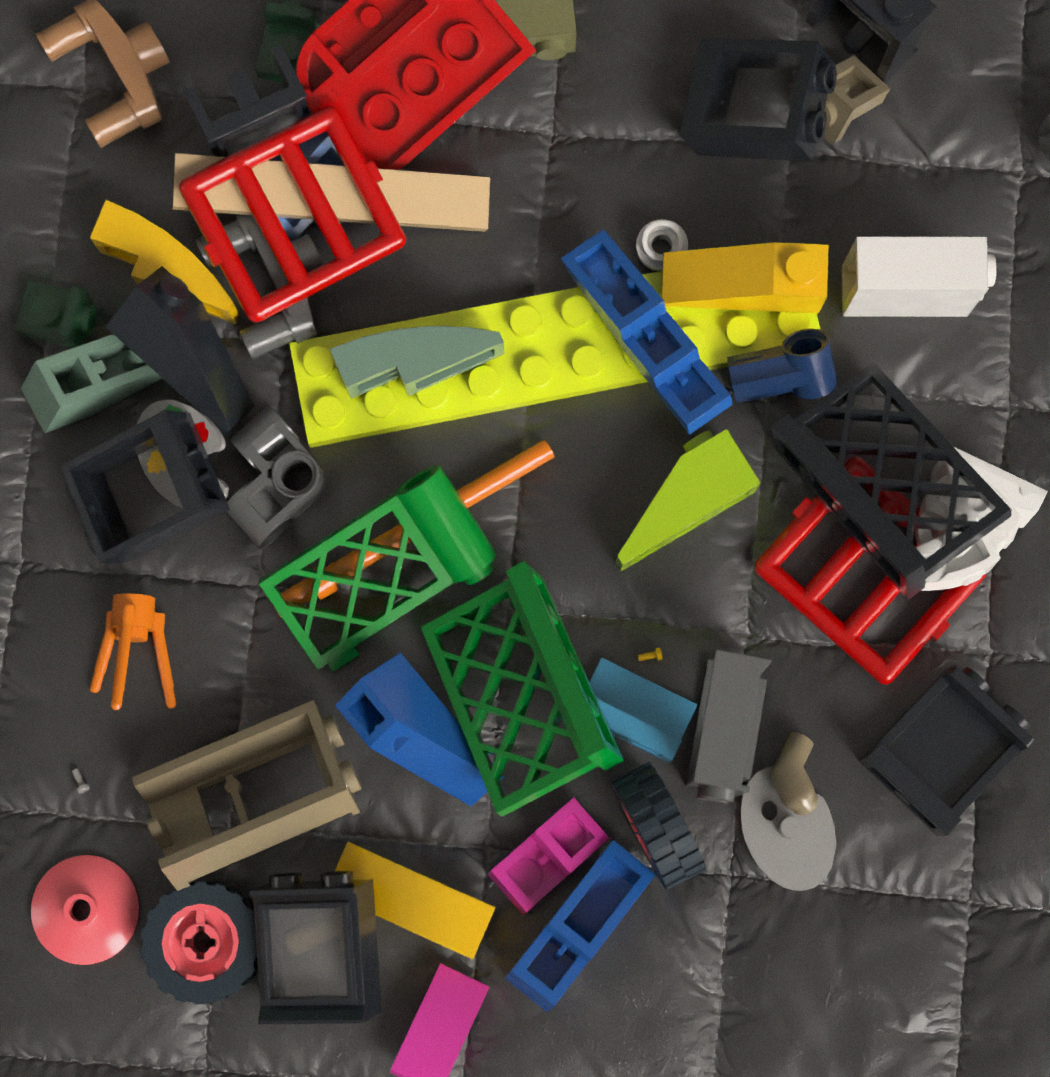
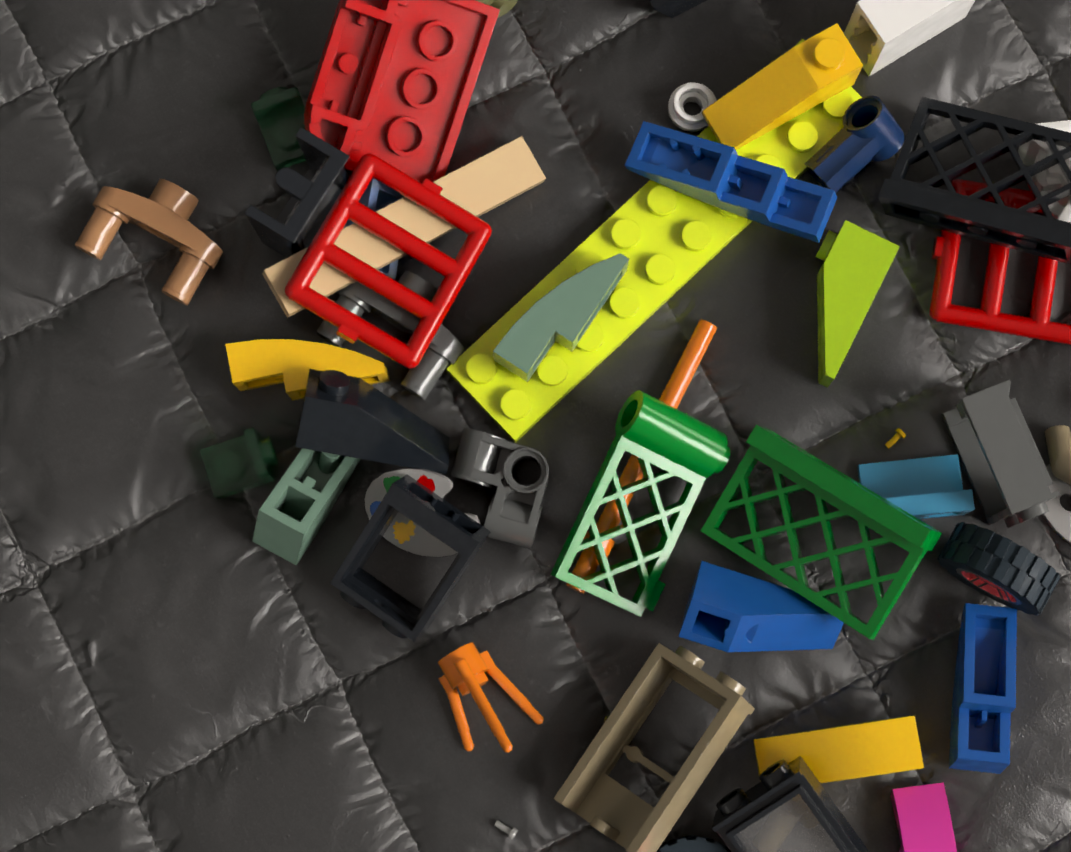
camera: 30 degrees left, 0 degrees up
(548, 856) = (920, 649): dark pink slope -> none

